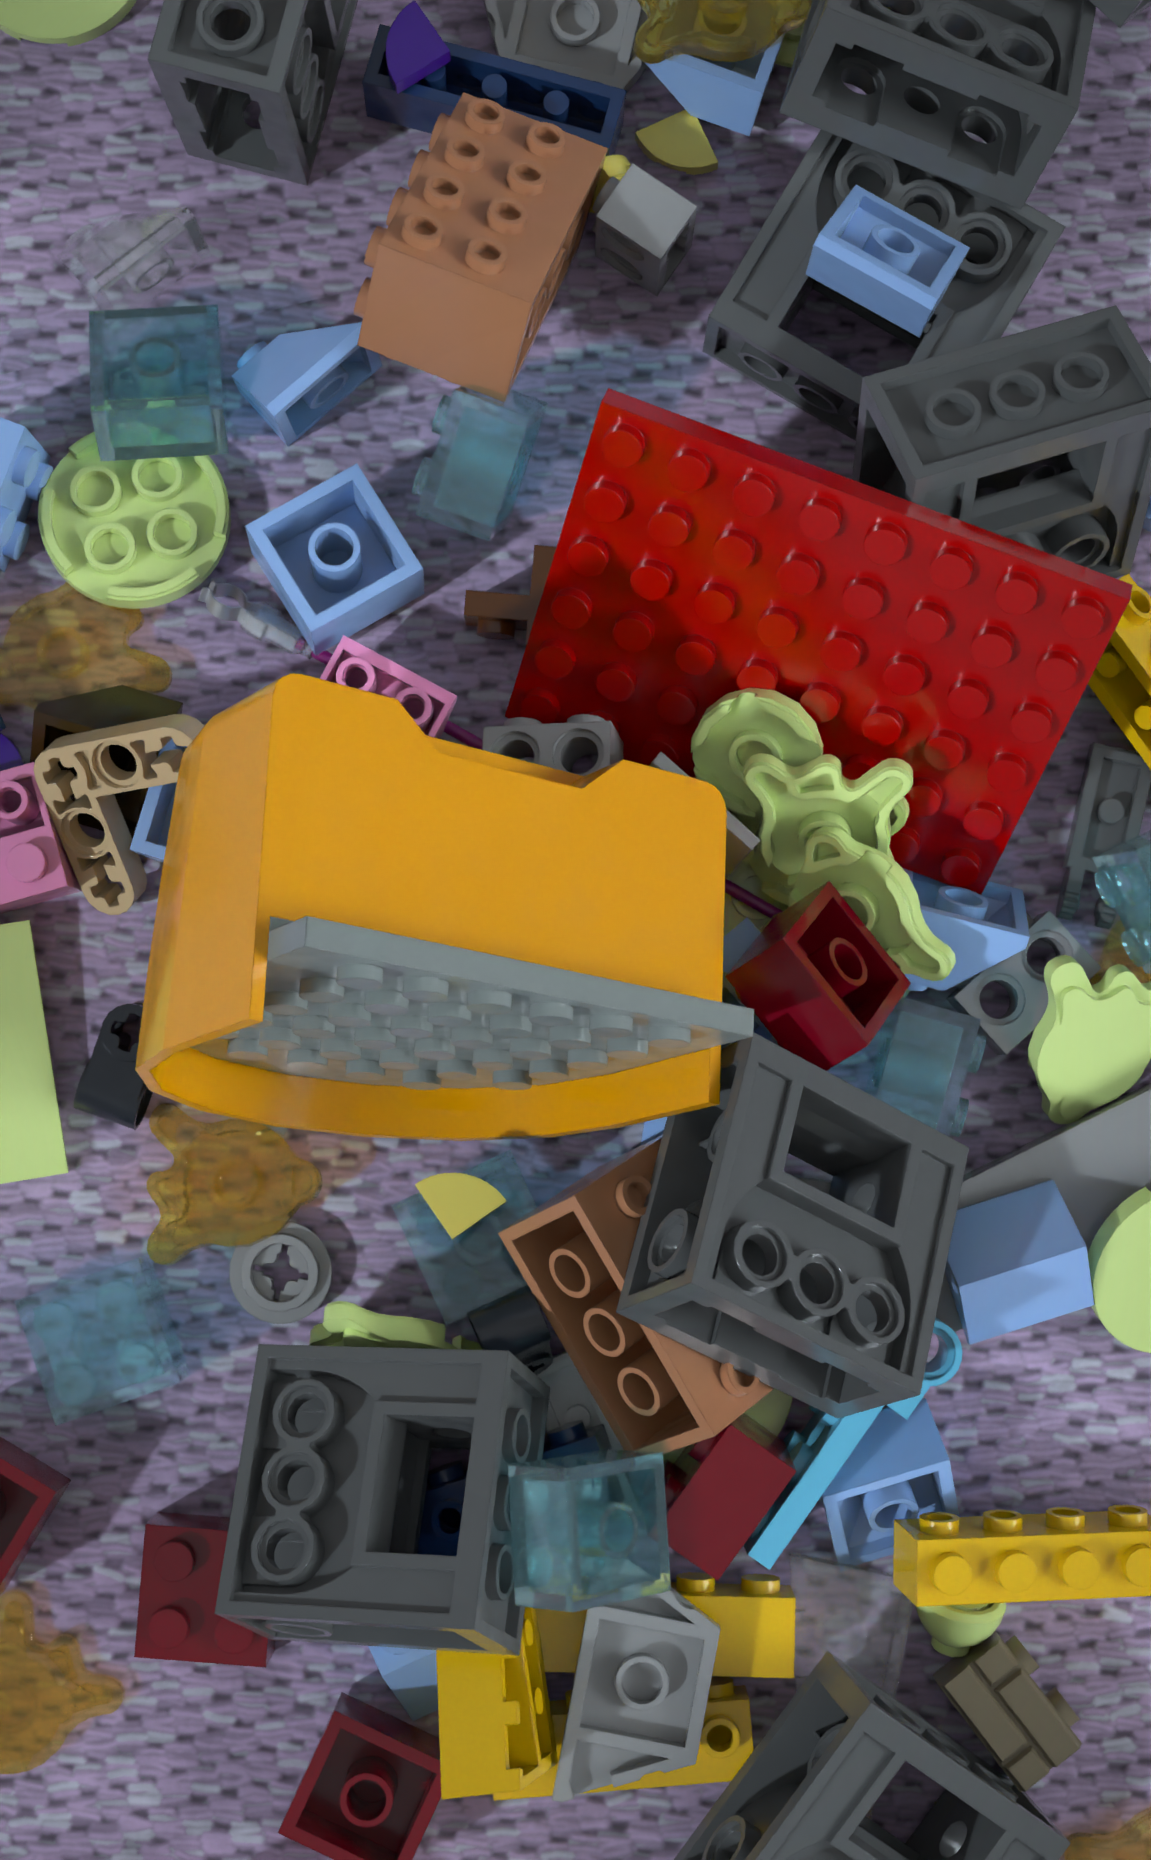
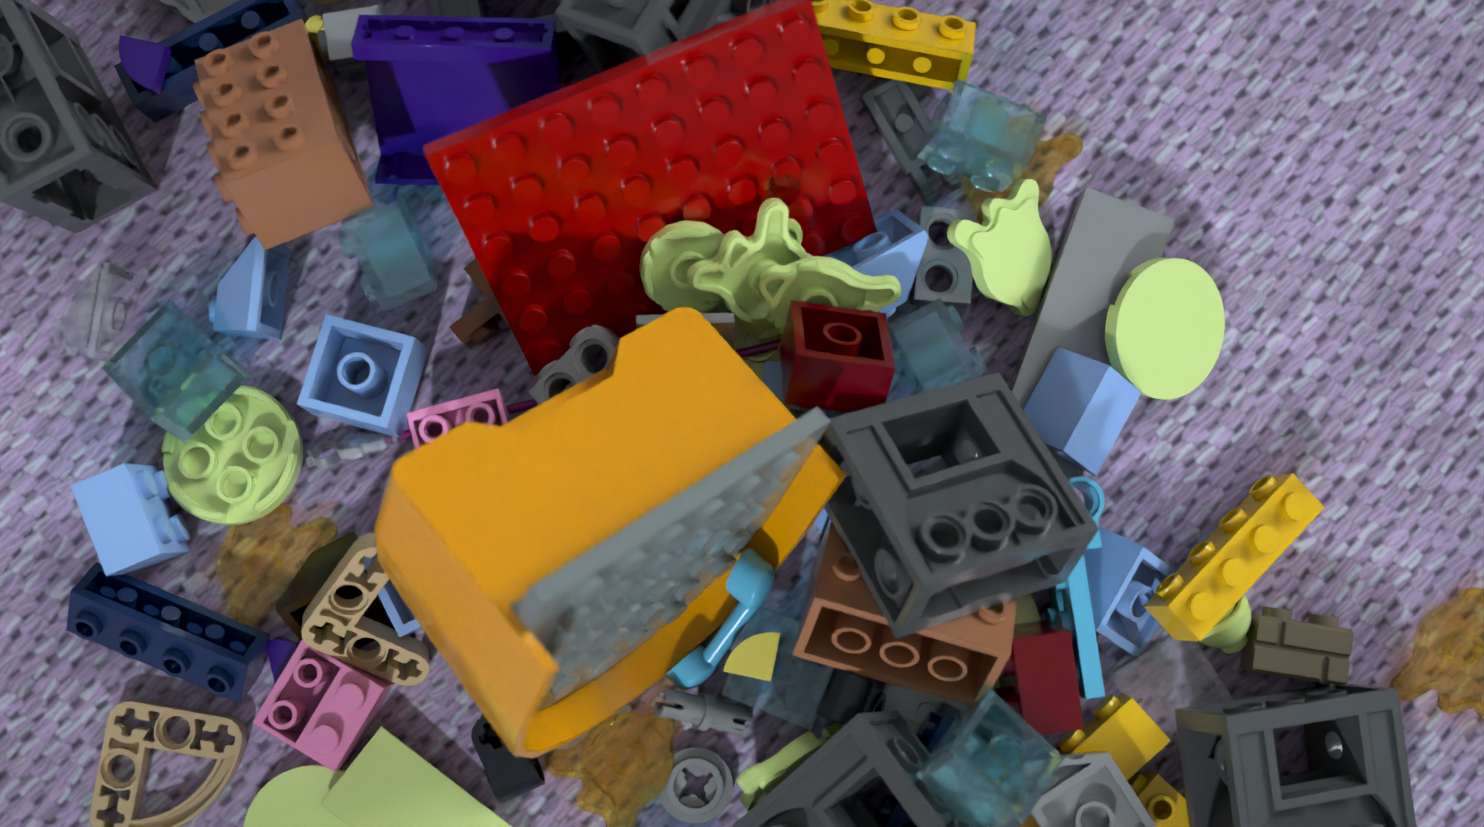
camera: 45 degrees left, 0 degrees up
(357, 1206) = (703, 711): none -> light grey pin
(522, 1125) = (748, 583): none -> medium azure piece
(695, 340) = (445, 76): none -> dark purple panel

